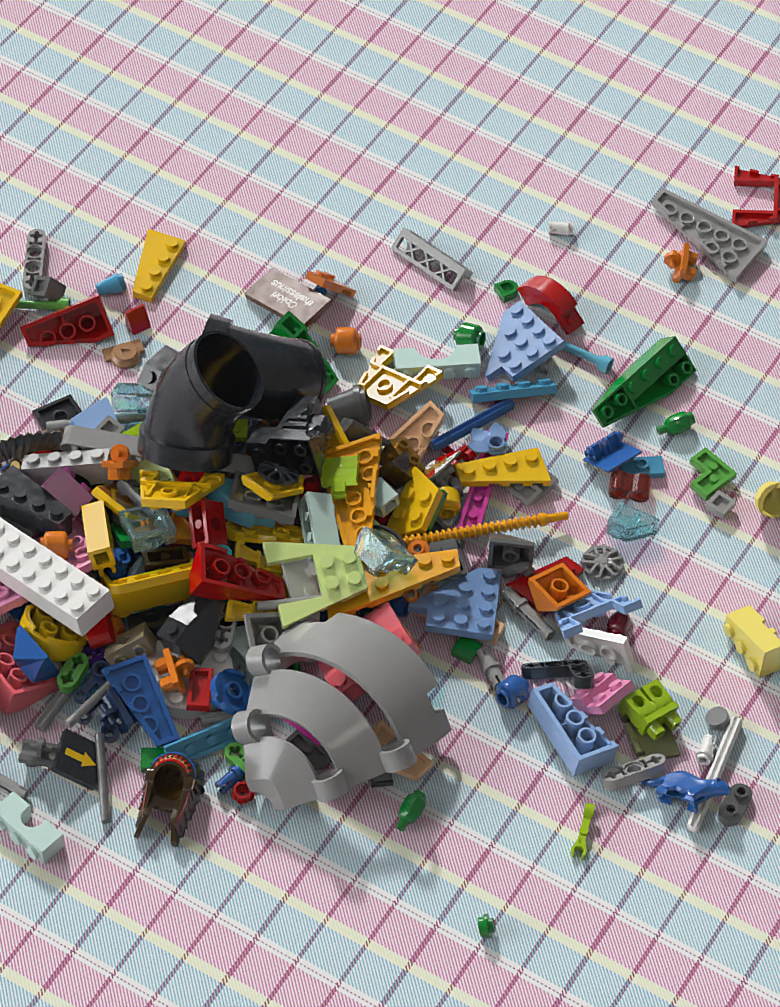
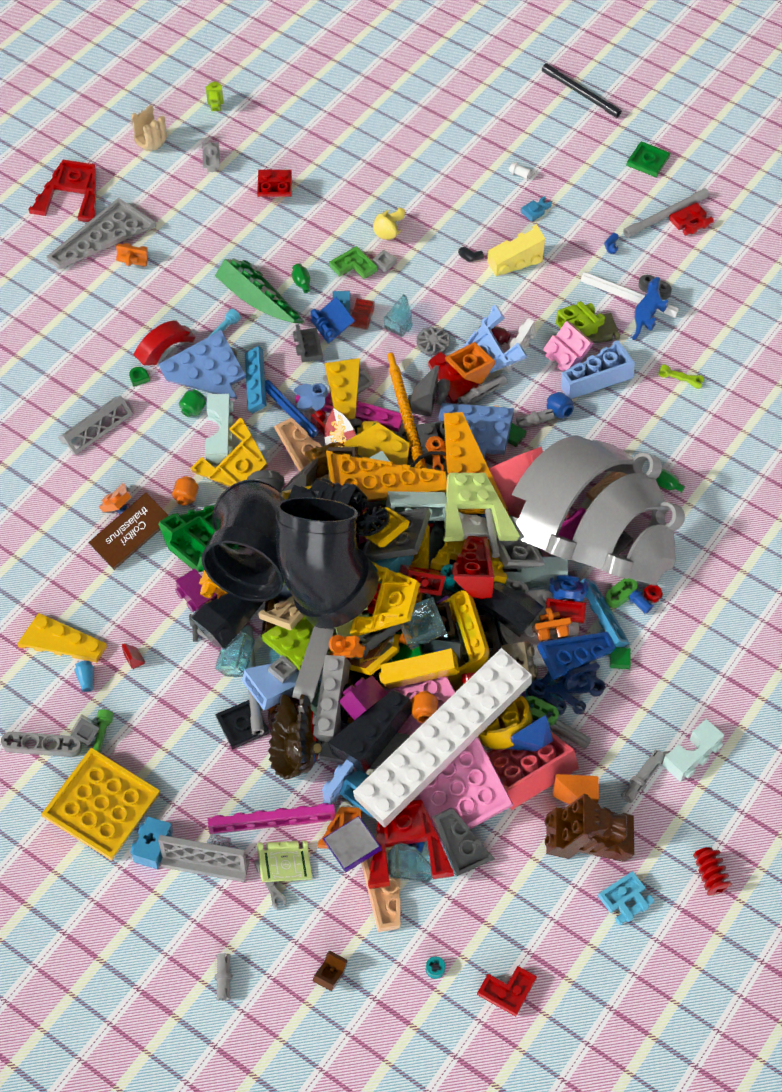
camera: 85 degrees left, 5 degrees up
(38, 753) = (622, 737): dark grey hips -> none
(74, 324) = (129, 703): red wedge -> none
(76, 759) = (627, 709): black tile -> none
(87, 705) = (570, 697): light grey bar -> none
(102, 778) = (642, 693): flat silver bar -> none
(125, 354) = (169, 669): medium nougat piece -> none
(173, 786) = (656, 641): dark brown piece -> none
(340, 473) = (367, 481): lime piece -> none
(383, 553) = (459, 454): clear light blue brick -> none
(486, 926) = (768, 440): green plate -> none
(564, 228) = (76, 330): white pin -> none
(572, 434) = (308, 344): none -> dark grey bracket
(577, 671) = (540, 362): black beam -> none
(622, 777) = (630, 346): light grey beam -> none
(705, 754) = (610, 296): white pin -> none
(717, 718) = (582, 286): tile -> none
(748, 593) = (469, 255): none -> black arm

